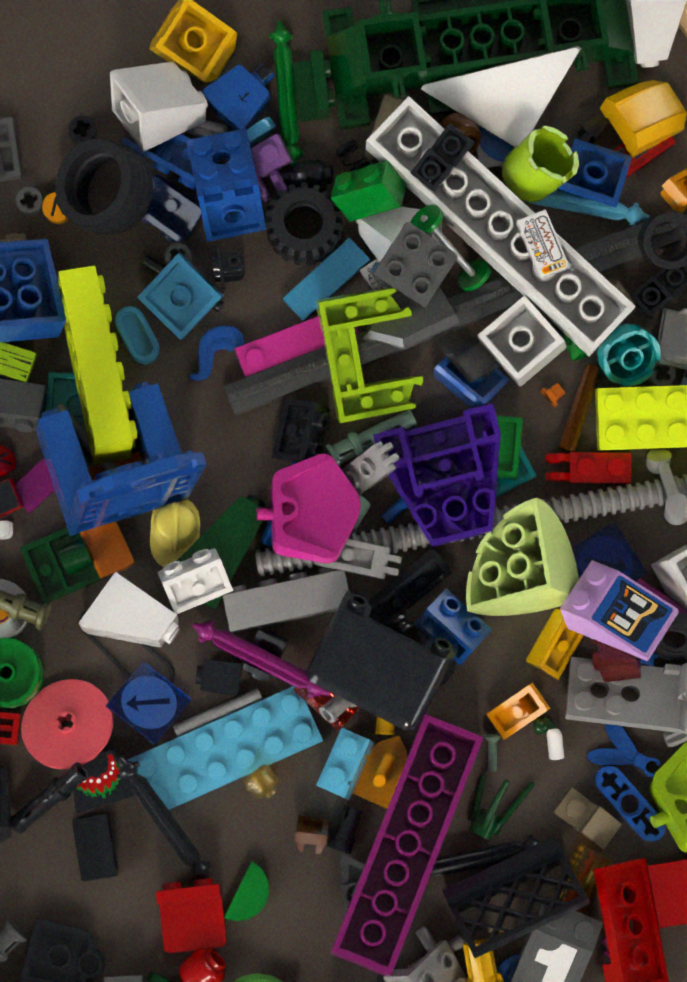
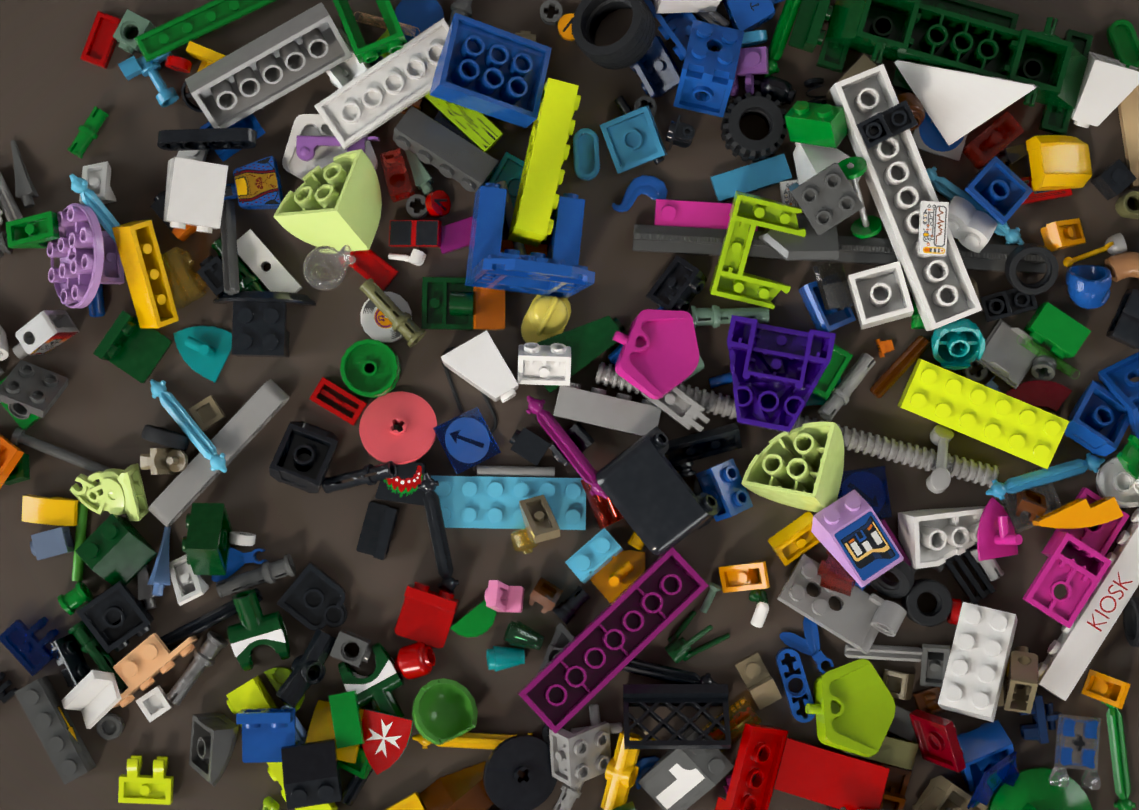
camera: 30 degrees right, 5 degrees up
(266, 751) = (539, 519): none -> dark tan slope
(268, 856) = (504, 597): none -> bright pink bracket
(298, 922) = (504, 657): none -> teal cone
(308, 889) = (523, 636): none -> clear green cone
(334, 708) = (605, 510): light grey pin -> none
(371, 467) = (718, 339): light grey hinge -> none
(530, 466) = (841, 394): none -> light grey pin
(539, 164) = (959, 164): lime cylinder -> none
(569, 113) = (993, 140): none -> clear red brick
(581, 223) = (970, 225): none -> white brick
(592, 468) = (887, 417): red hinge -> none

